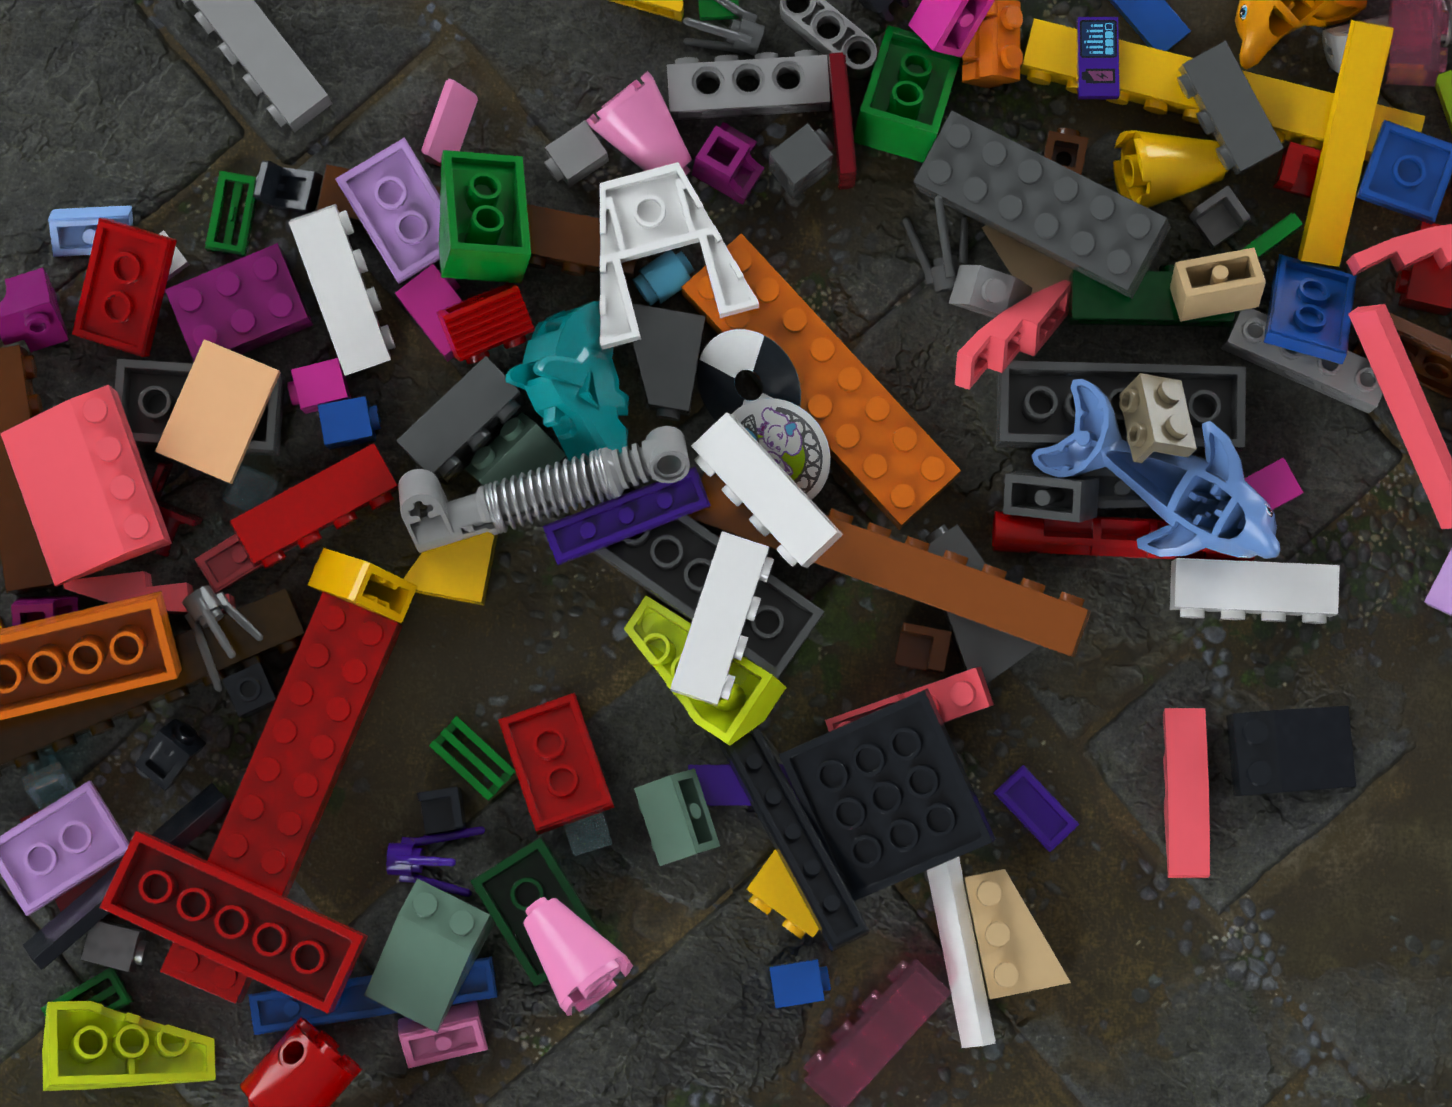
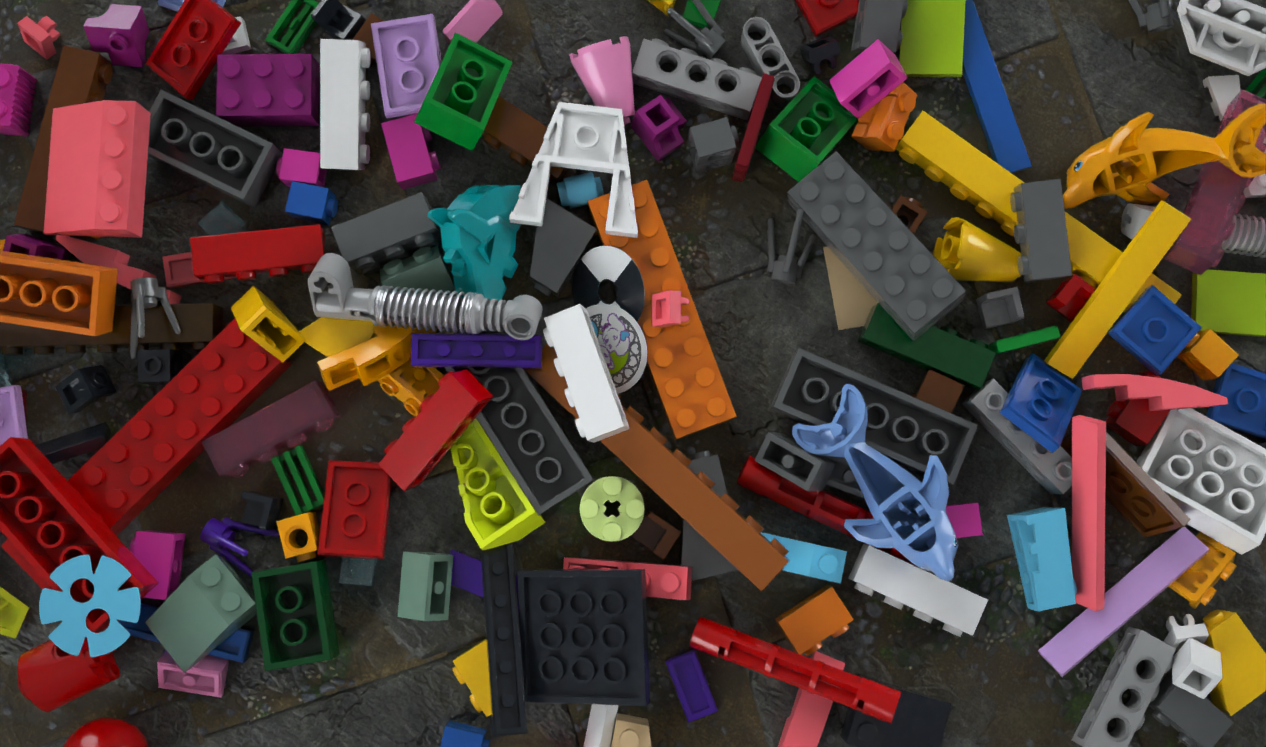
camera: 20 degrees right, 0 degrees up
(171, 515) = (156, 217): dark red bracket -> none
(217, 411) = (213, 155): light nougat tile -> none
(279, 997) = (60, 606): none -> medium azure piece
(349, 905) = (162, 557): none -> dark pink brick
(416, 709) = (271, 429): none -> clear pink brick
(486, 322) = (434, 169): red brick -> none
(487, 814) = (288, 529): none -> light orange brick
(505, 575) = (370, 358): none -> light orange slope
(562, 590) = (411, 385): none -> light orange bracket
(573, 955) = (297, 661): bright pink cone -> none
(575, 155) = (553, 78): light grey brick -> none
(614, 628) = (435, 428): none -> red brick
(720, 619) = (512, 455): white brick -> none
(830, 377) = (667, 309): none -> coral tile
(880, 628) = (593, 508): none -> yellowish green brick
(986, 290) = (811, 296): light grey slope -> none
(1015, 330) = (818, 329): coral slope -> none
(1097, 58) = (958, 156): tile -> none
(1119, 602) = (812, 559): none -> medium azure slope
(1146, 735) = (795, 669): none -> red piece
(1149, 672) = (814, 620): none -> orange brick
(1156, 417) = (897, 437): dark tan bracket -> none
(1186, 345) = (939, 391): none -> reddish brown panel
(1217, 284) = (982, 356): tan brick -> none
(1386, 490) = (1043, 557): none -> medium azure wedge

